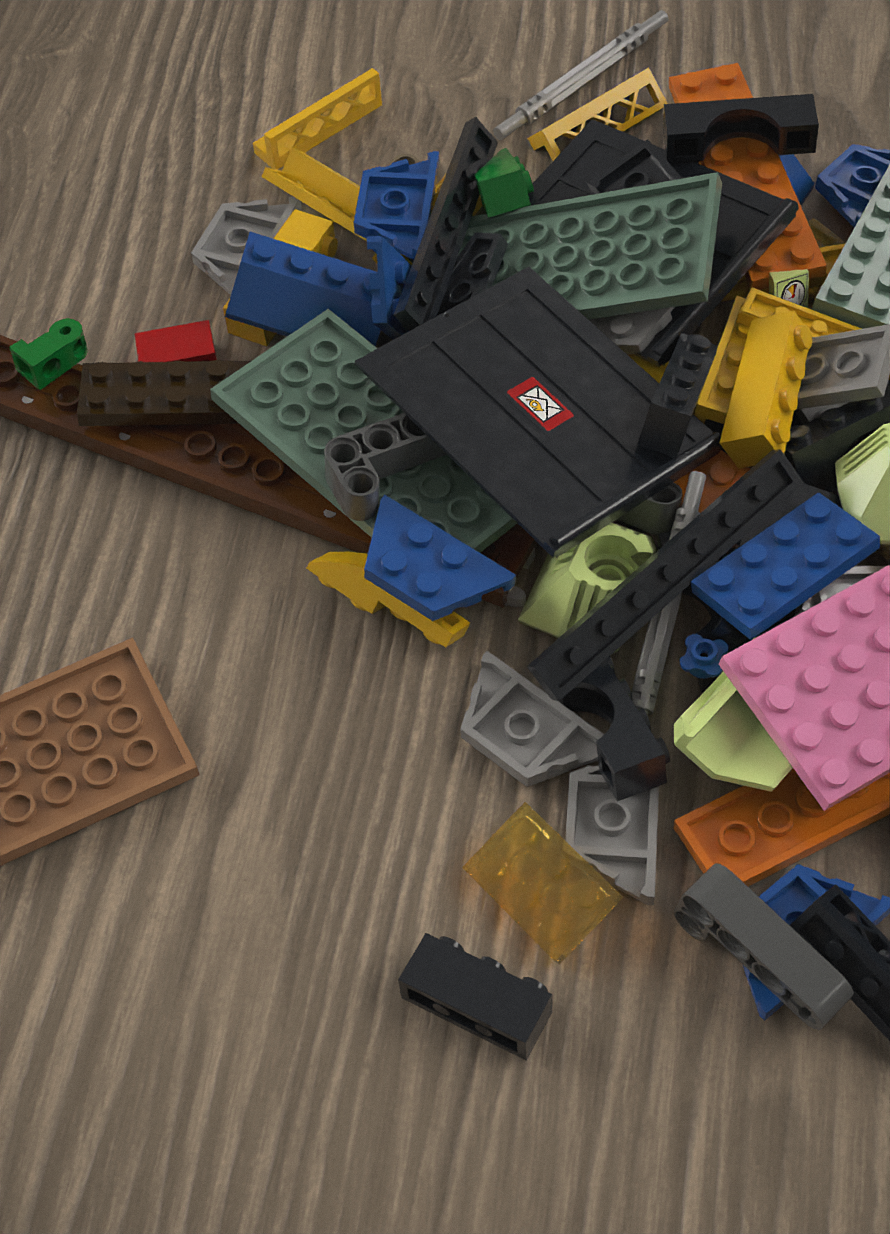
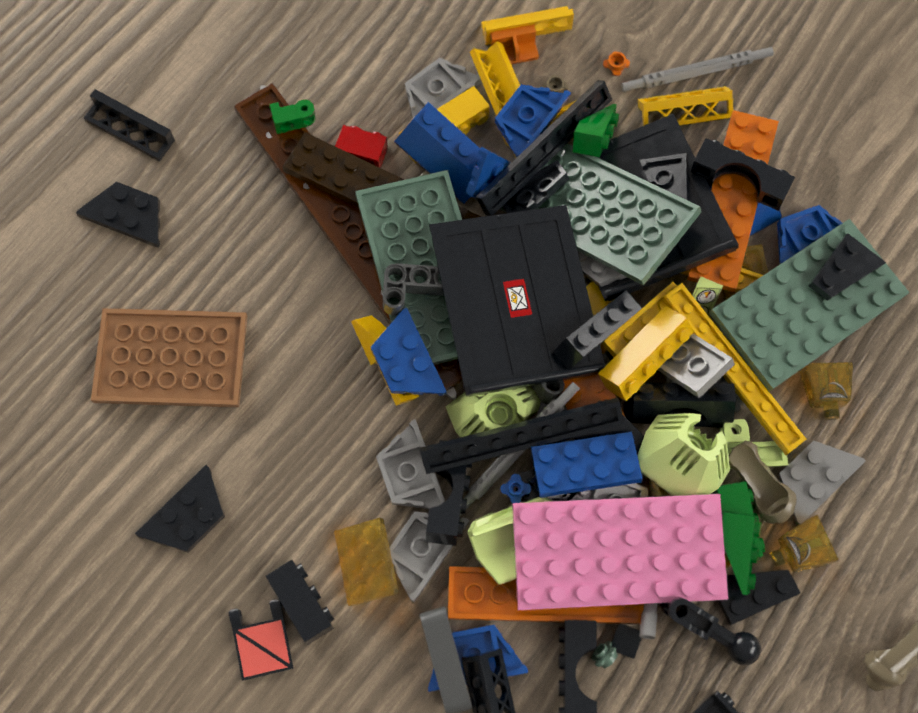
camera: 25 degrees right, 15 degrees up
(207, 971) = (186, 515): none -> black wing
(321, 140) = (518, 43): none -> orange panel
(455, 1098) = (262, 646): none -> coral flag
(470, 107) = (616, 57): none -> orange plate

